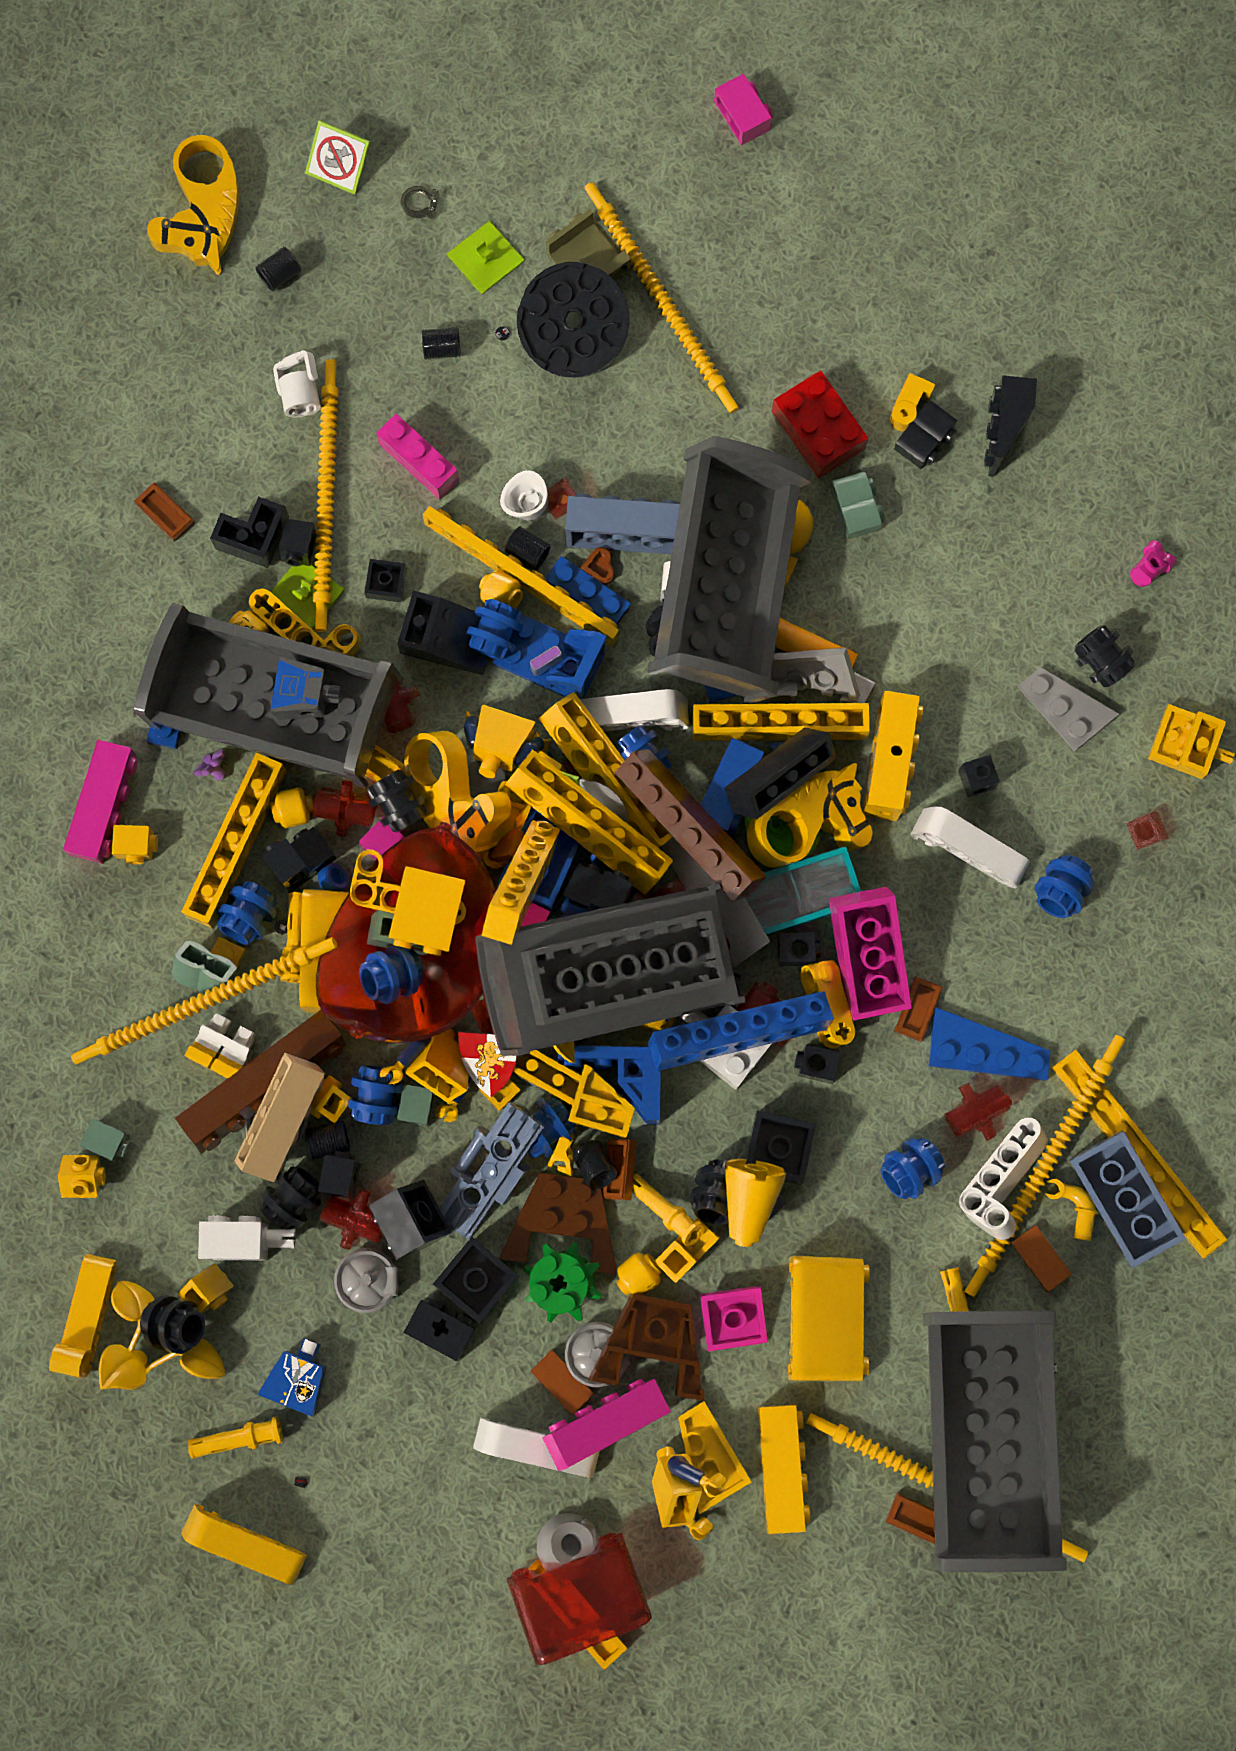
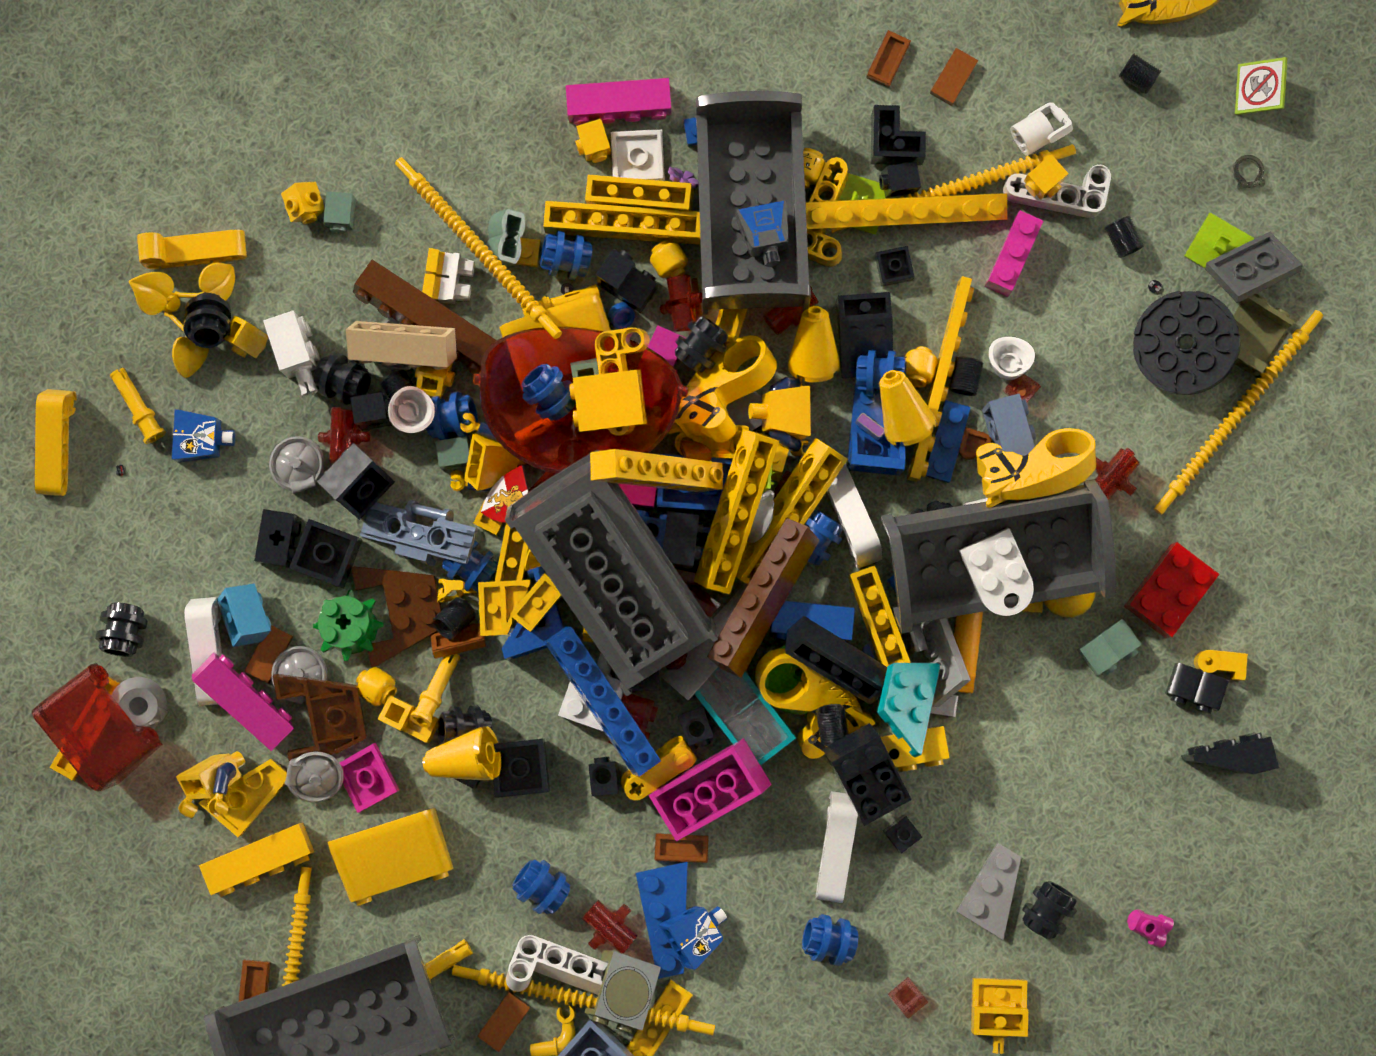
camera: 70 degrees right, 5 degrees up
(168, 803) = (638, 154): none -> white tile
(209, 453) = (953, 76): none -> dark orange tile
(209, 812) = (639, 193): none -> yellow brick
(333, 545) = (906, 211): none -> yellow plate
(353, 394) = (1045, 178): none -> yellow brick
(356, 1130) = (411, 410): none -> white helmet
(366, 393) = (1079, 194): none -> white beam
(443, 687) = (814, 347): none -> yellow cone
(480, 1536) = (121, 629): none -> black piece
(511, 1392) = (244, 615): none -> dark azure brick
(520, 228) = (1253, 267): none -> dark grey plate
(544, 617) = (903, 410): none -> yellow cone
(613, 1063) = (536, 603): none -> yellow plate
(659, 501) = (1040, 472): none -> yellow animal
(678, 434) = (1115, 473): none -> clear red pin
(714, 1374) = (314, 776): none -> light grey piece
(746, 577) = (997, 571): none -> white plate
(845, 802) = (831, 723): none -> black piece
(847, 715) = (908, 701): none -> teal wing
(908, 782) = (867, 774): none -> black slope
(1014, 1024) = (694, 934): none -> blue torso
(1052, 1114) = (625, 992): none -> panel

